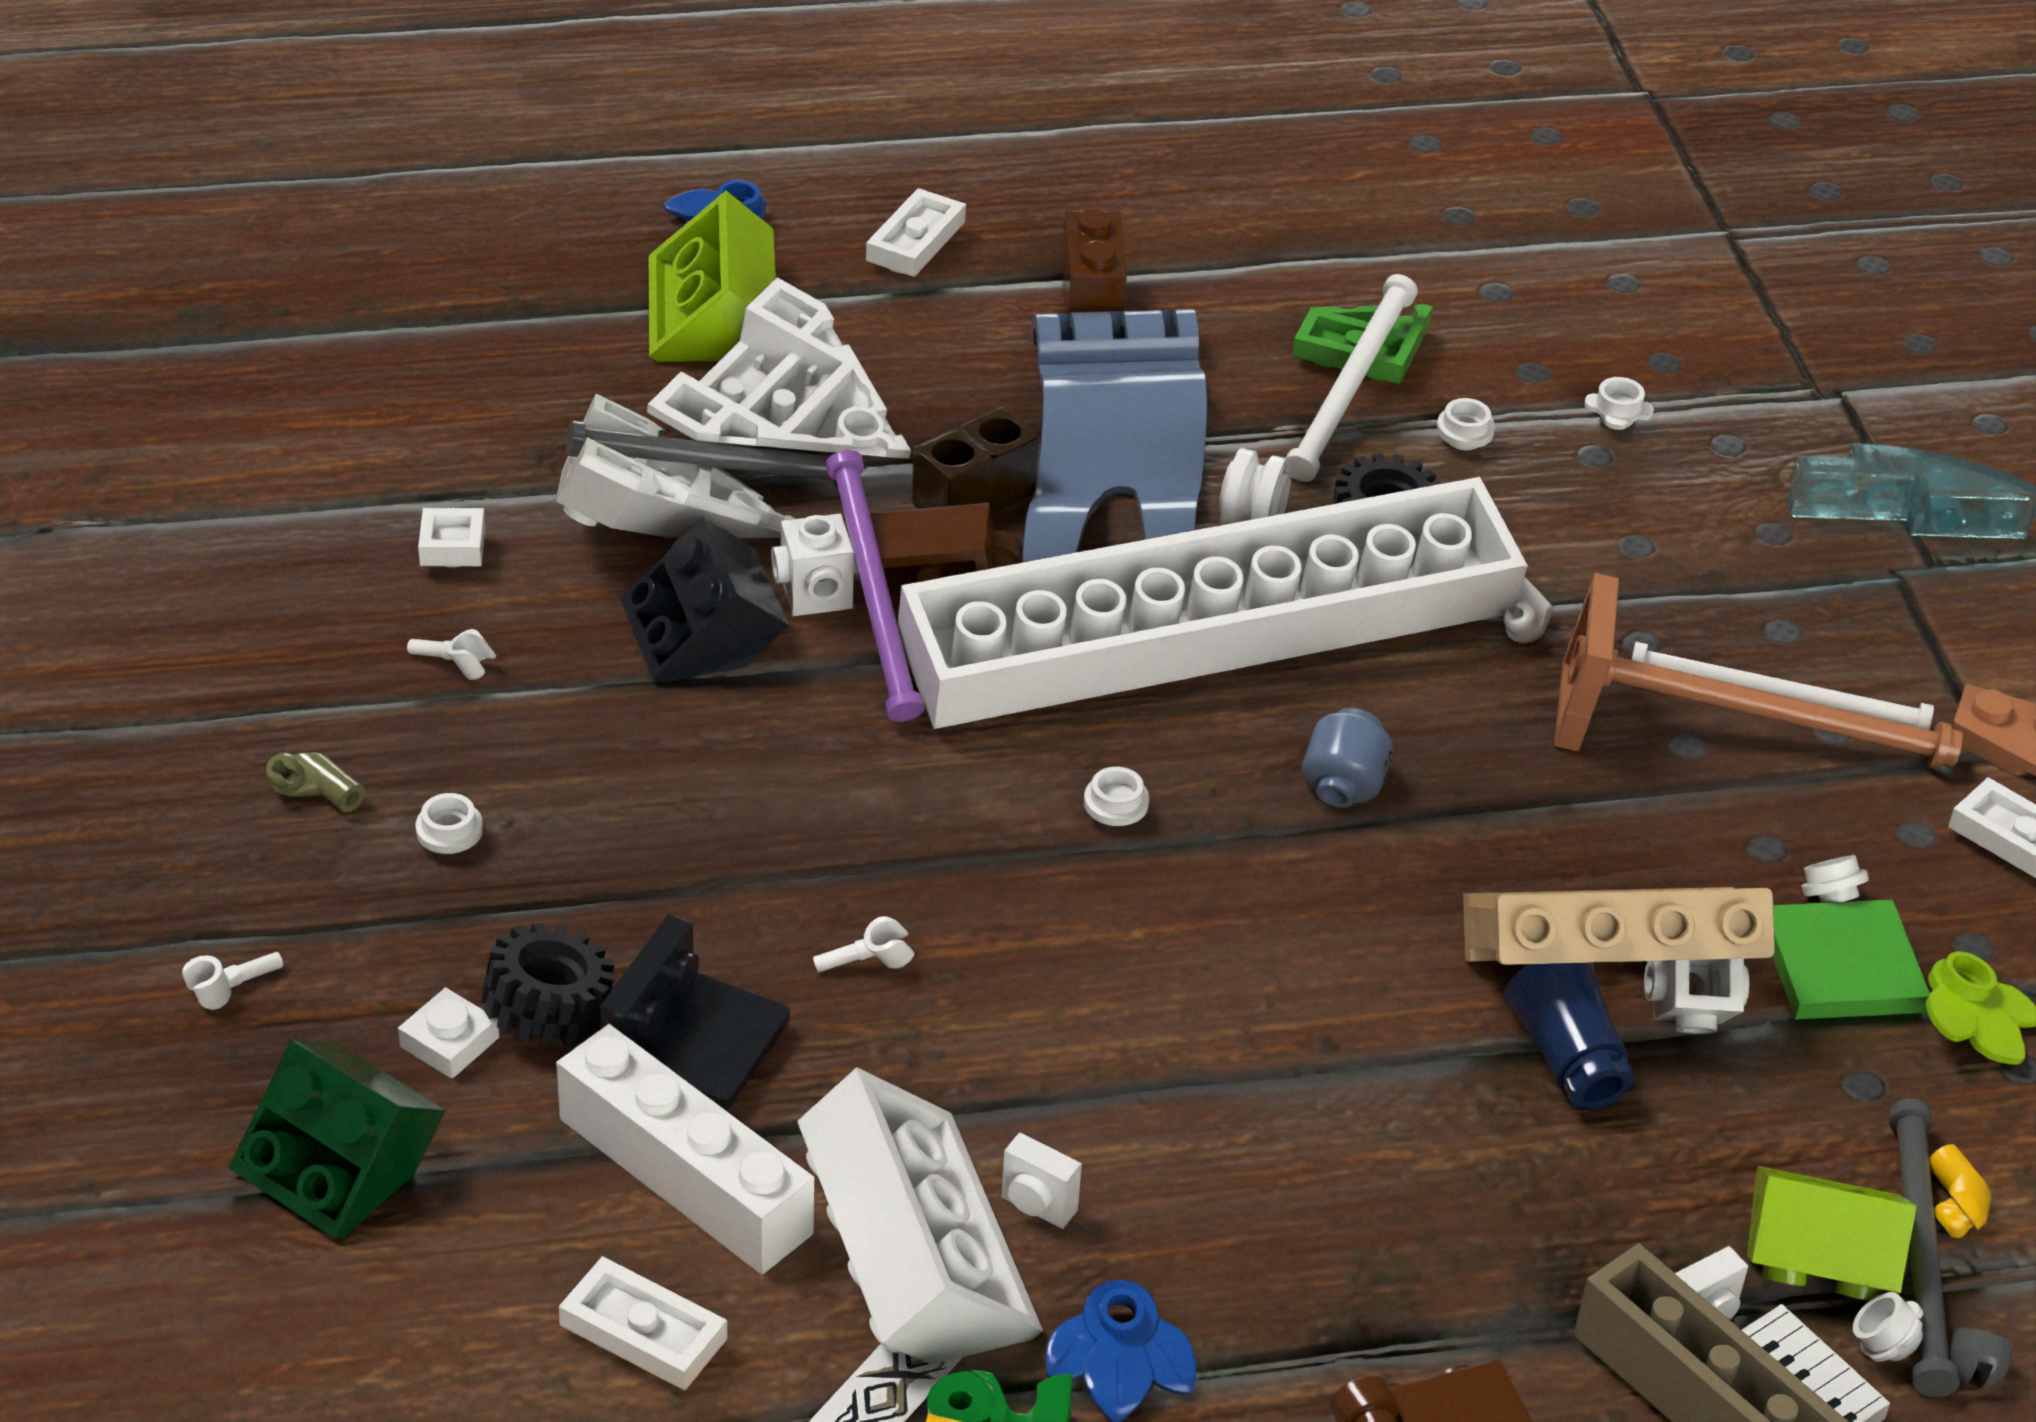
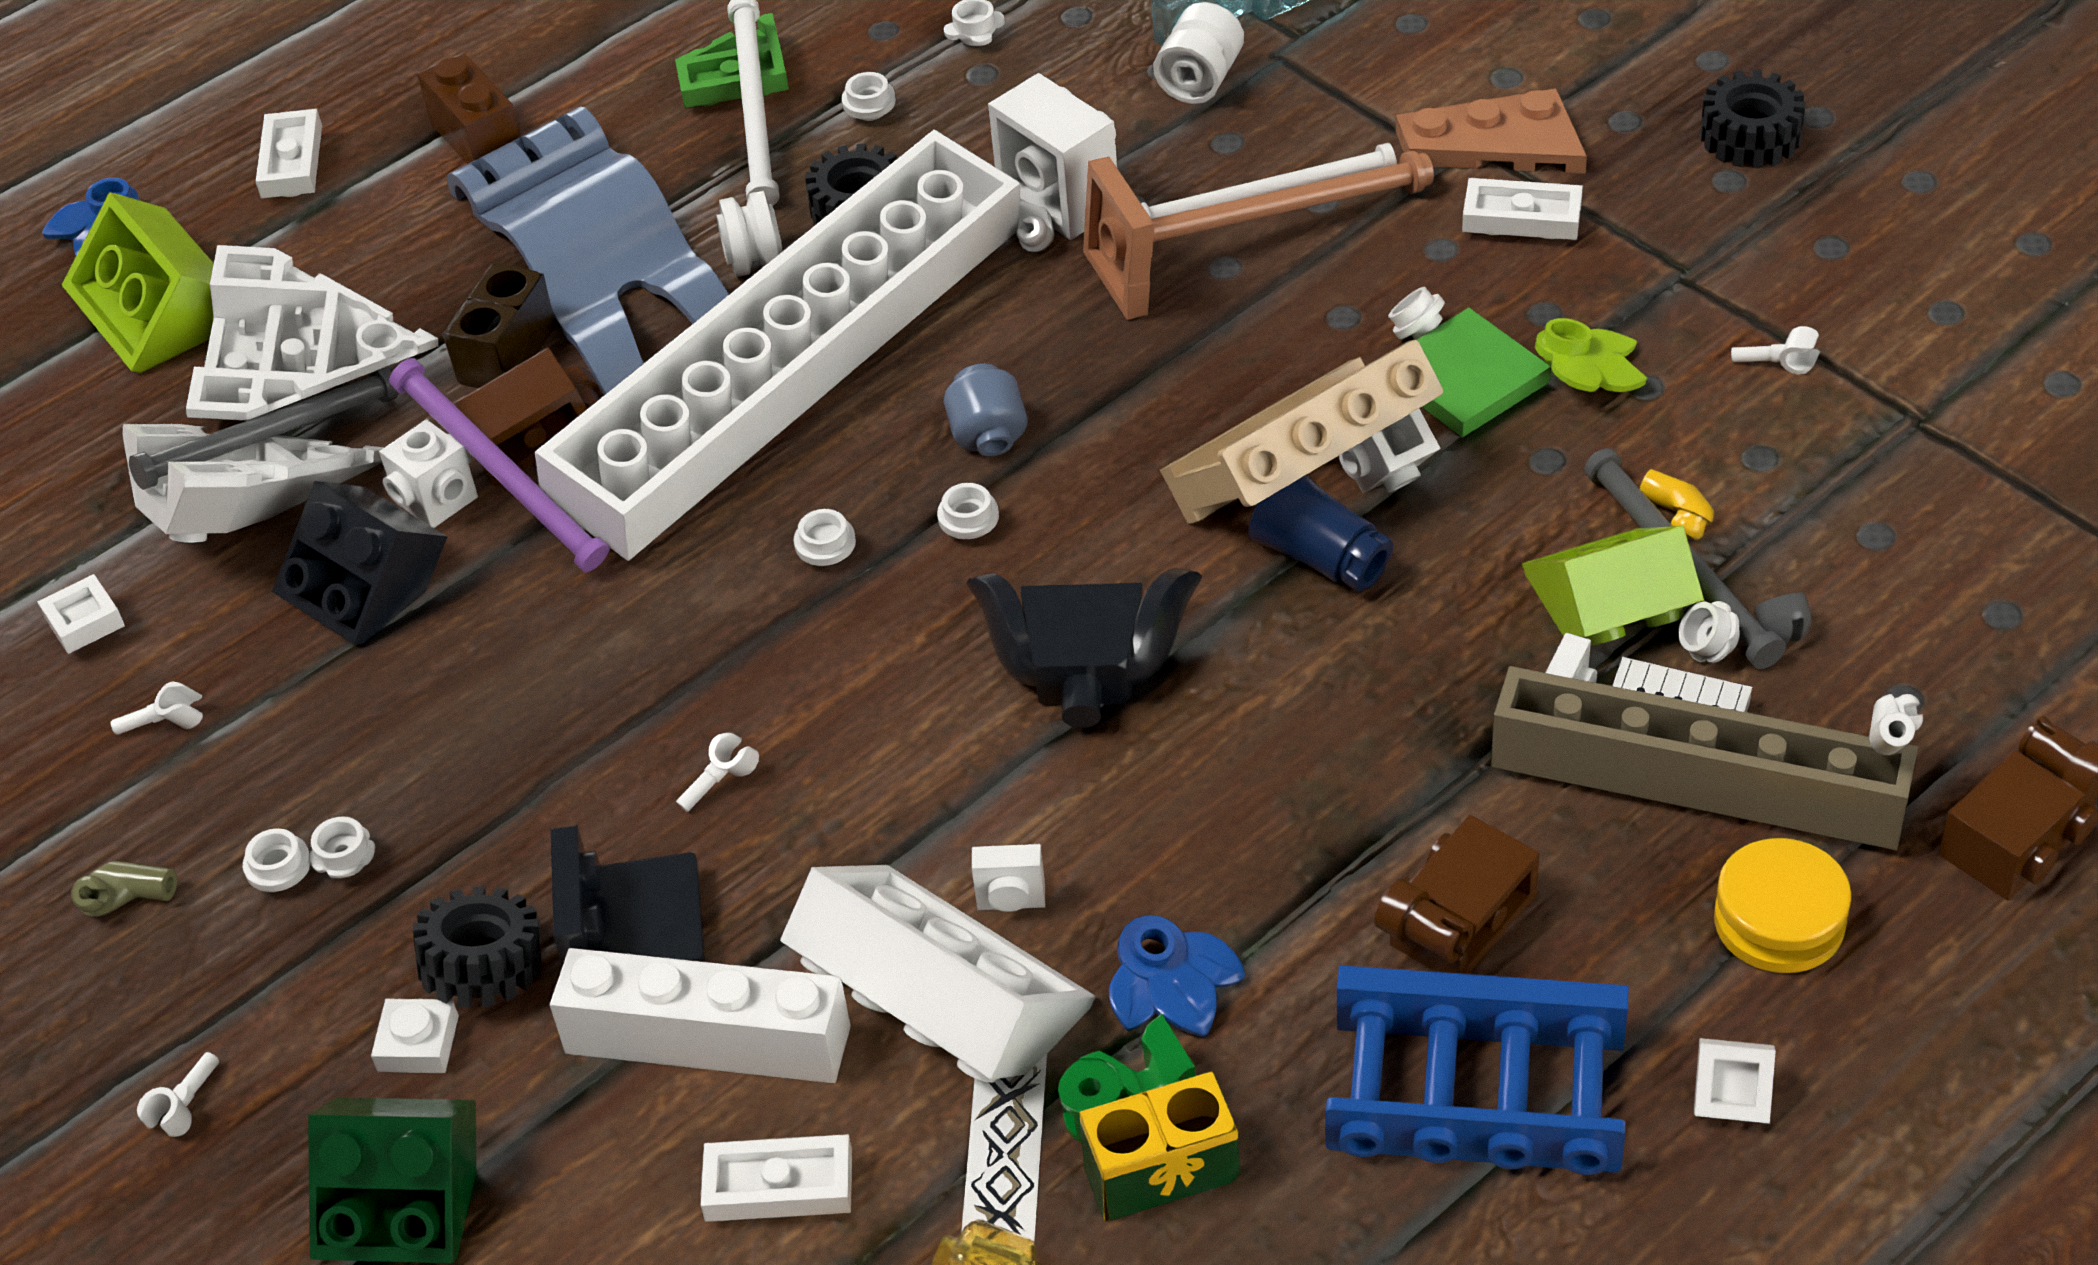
camera: 25 degrees left, 5 degrees up
(507, 842) = (341, 847): none -> white plate
(1263, 841) = (967, 511): none -> white plate
(1277, 1011) = (1084, 639): none -> black torso
(1582, 530) = (1045, 144): none -> white brick
(1809, 531) = (1198, 53): none -> white wheel

